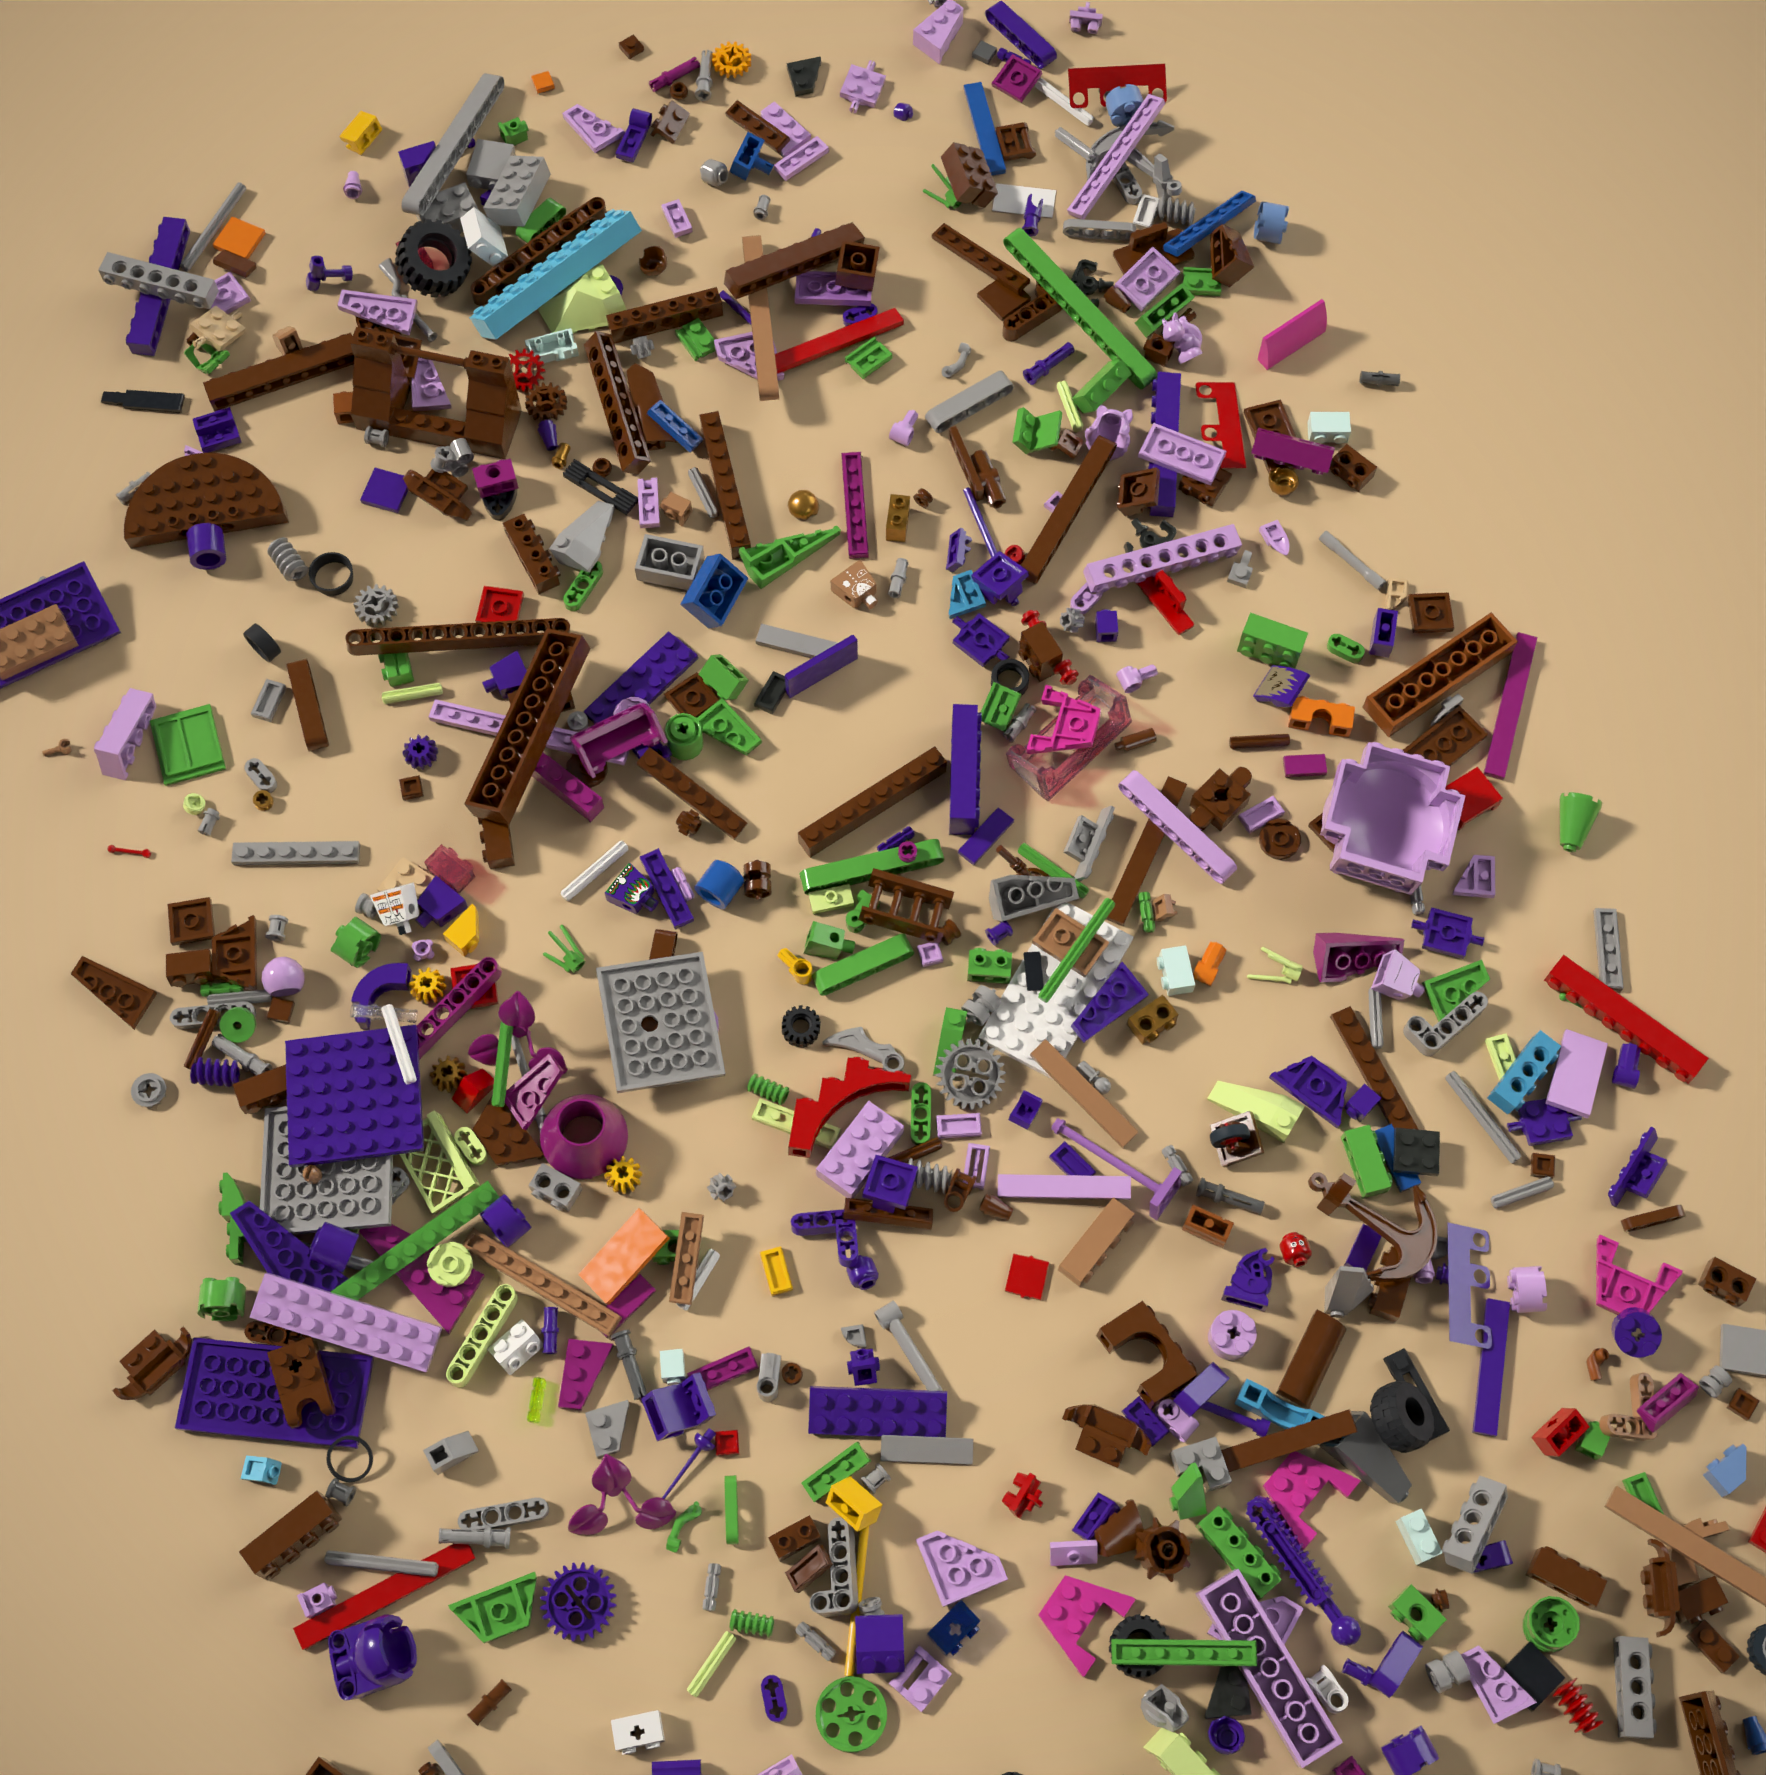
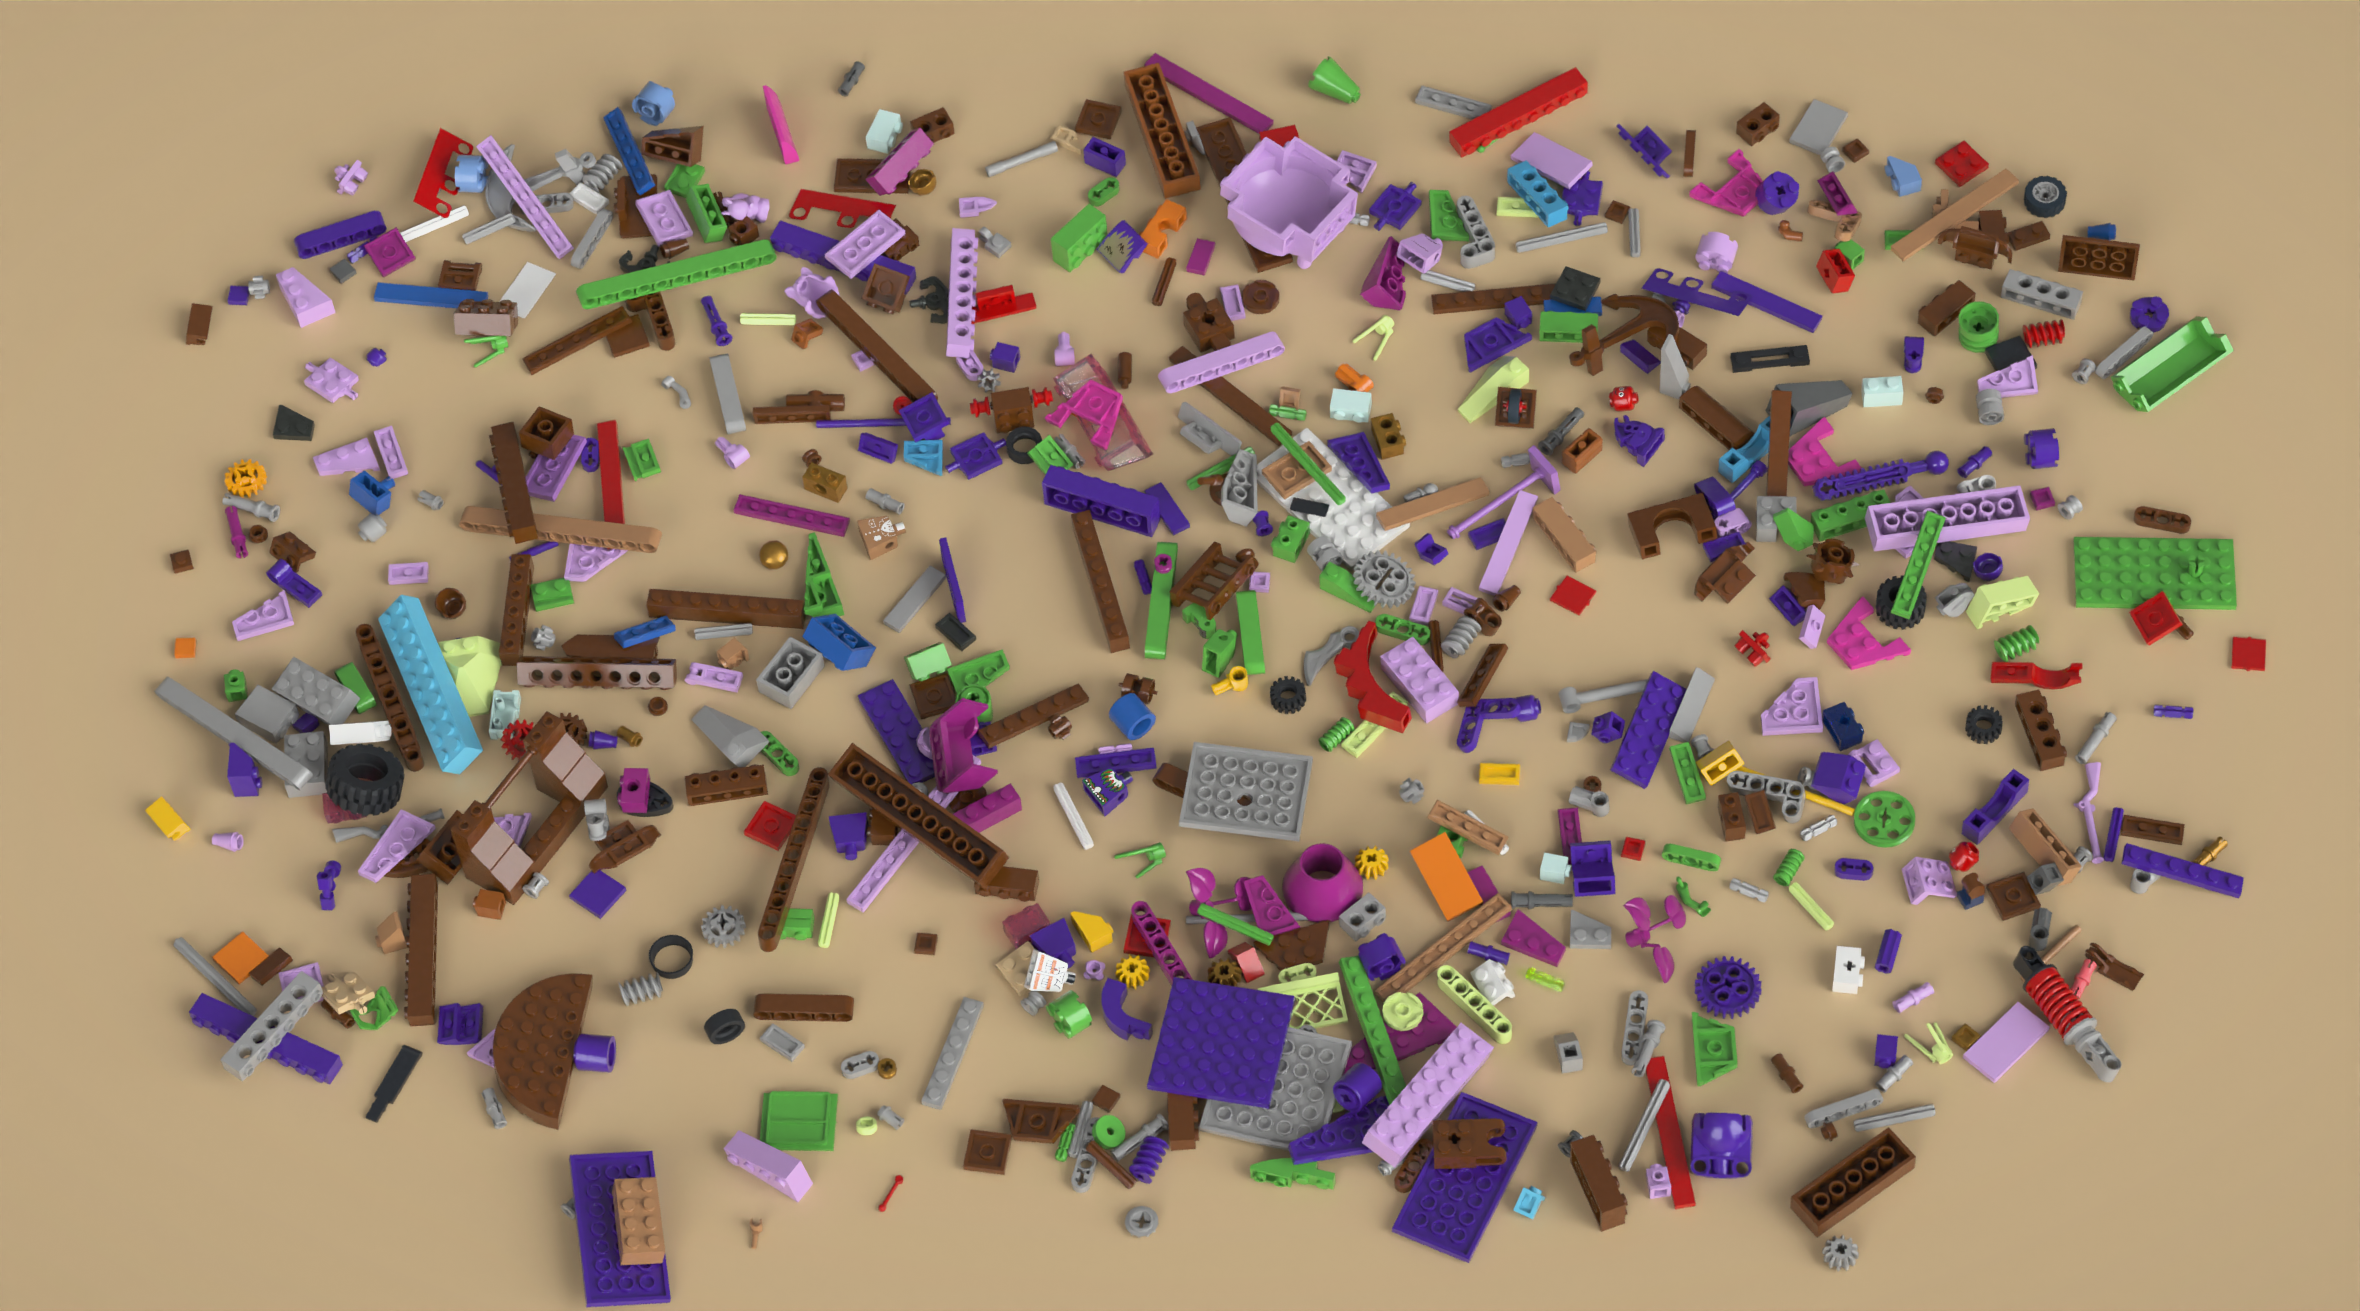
camera: 65 degrees left, 10 degrees down
(117, 992) = (1031, 1229): reddish brown wing -> none
(153, 1364) = (1402, 1266): reddish brown plate -> none
(189, 968) = (1037, 1158): reddish brown brick -> none
(221, 1299) = (1367, 1194): bright green brick -> none
(276, 928) = (1024, 1082): light grey bush -> none
(283, 977) = (1077, 1083): lavender helmet -> none
(314, 1176) = (1278, 1098): medium nougat hinge -> none
(334, 1473) = (1530, 1138): black piece -> none
(374, 1012) = (1145, 1012): clear pin -> none
(398, 1044) = (1190, 988): white axle -> none
(415, 746) = (895, 924): dark purple gear -> none
(579, 472) = (701, 696): black container -> none
(702, 1443) = (1627, 863): dark purple sword -> none
(758, 126) = (334, 478): reddish brown tile -> none
(831, 899) = (1177, 641): yellowish green plate -> none
(890, 1183) = (1461, 658): dark purple panel -> none
(1032, 216) = (550, 285): dark purple piece -> none
(1037, 432) = (787, 346): bright green bracket -> none
(1101, 386) = (763, 285): bright green brick -> none
(1243, 1329) = (1677, 463): lavender brick -> none
(1396, 1664) = (1973, 437): beam -> none
(1402, 1416) = (1787, 365): black tyre -> none
(1430, 1618) = (1929, 413): bright green brick -> none
(1467, 1555) = (1886, 348): light grey brick -> none
(1627, 1071) = (1563, 128): dark purple piece -> none

